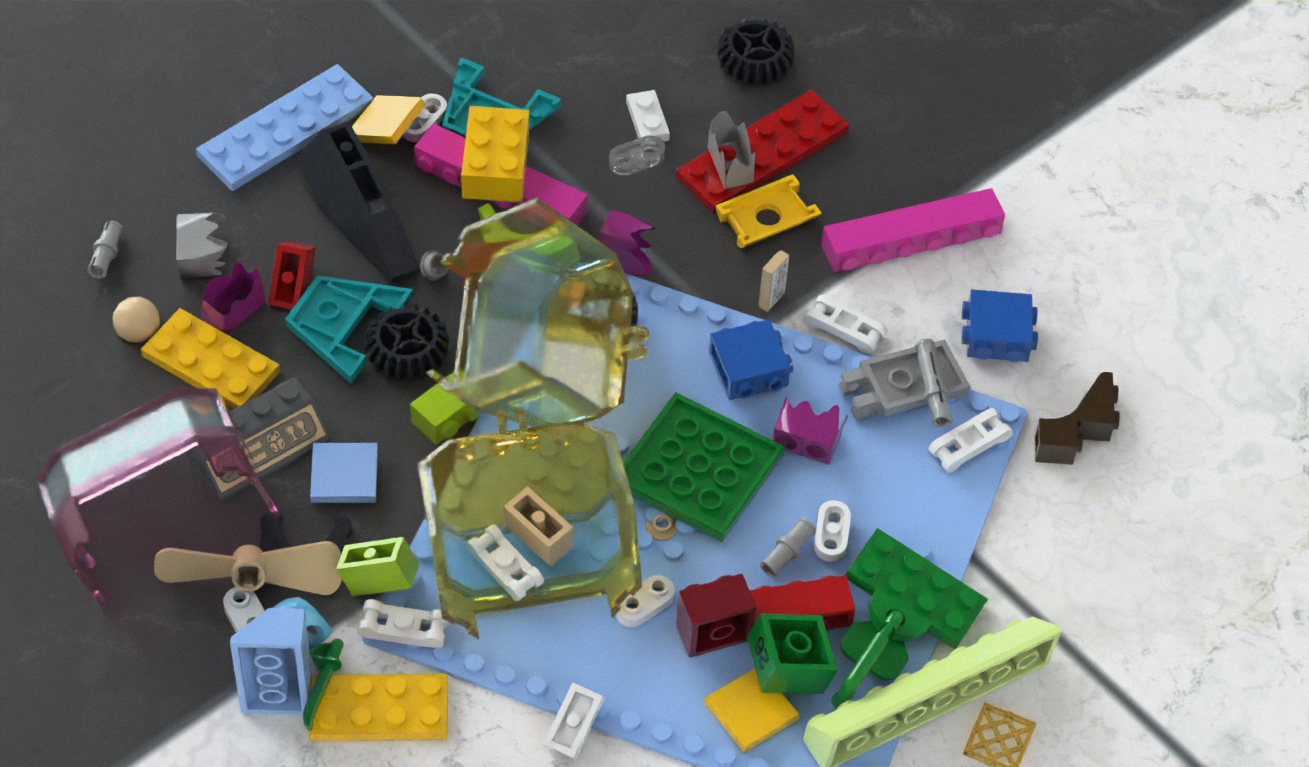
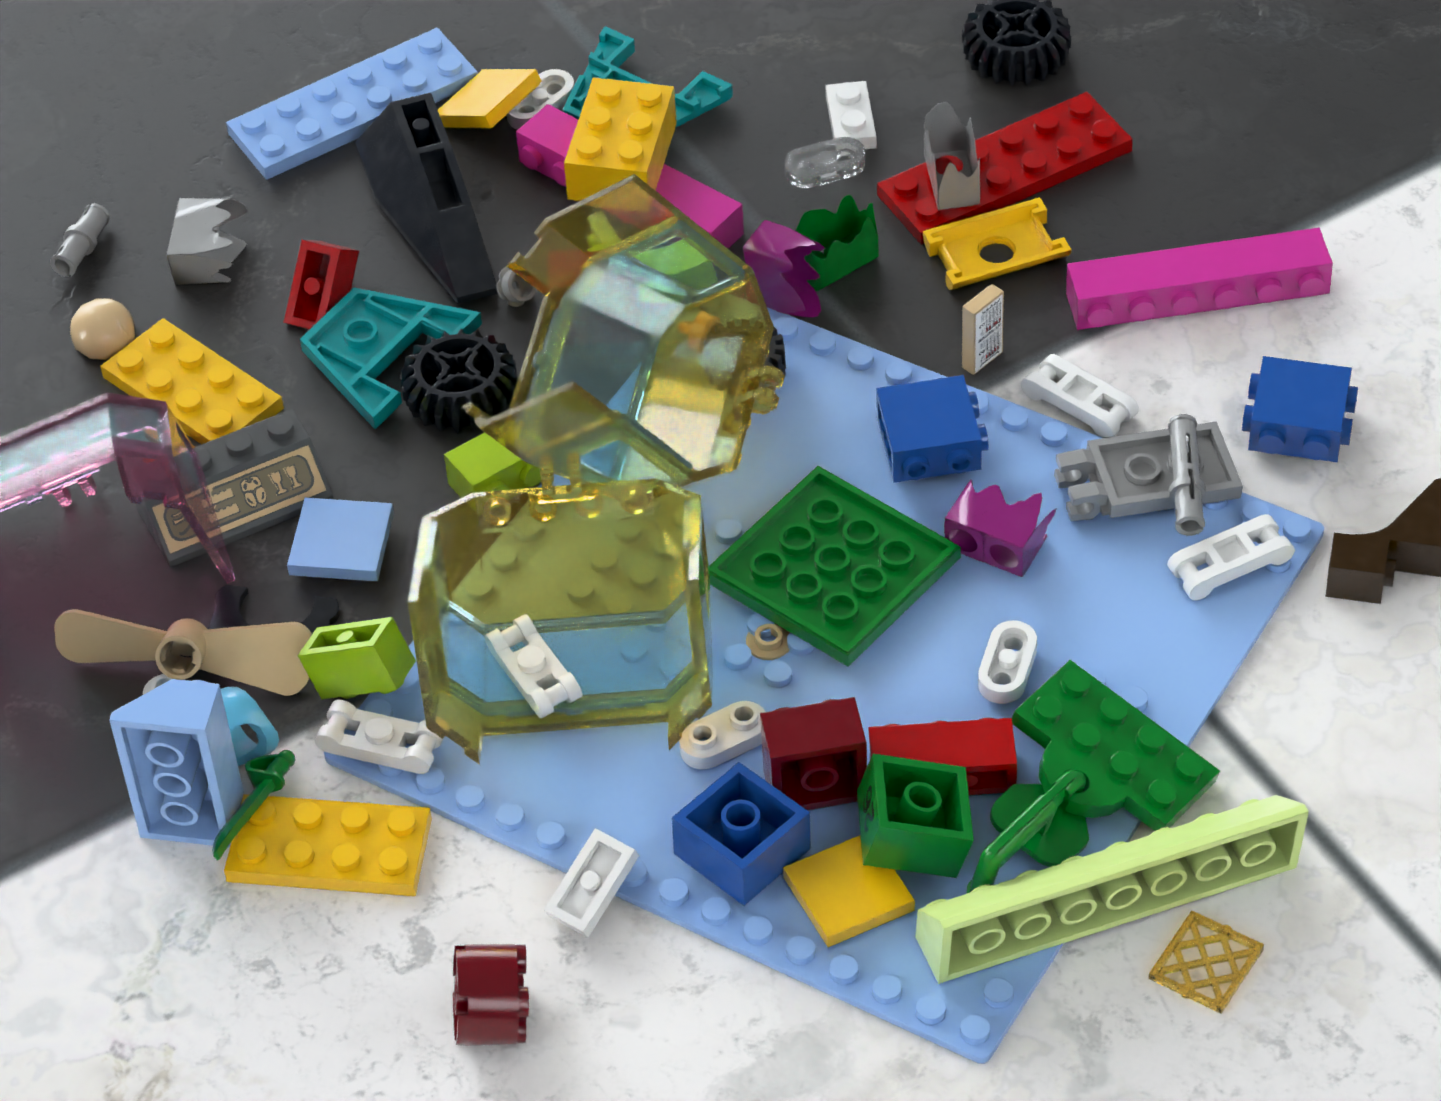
camera: 15 degrees right, 5 degrees down
(226, 290) = (245, 302): magenta piece -> none
(539, 526) = (585, 619): tan brick -> none
(663, 204) = (835, 233): none -> green piece
(674, 676) = (741, 833): none -> blue brick
(787, 547) = (939, 679): light grey pin -> none

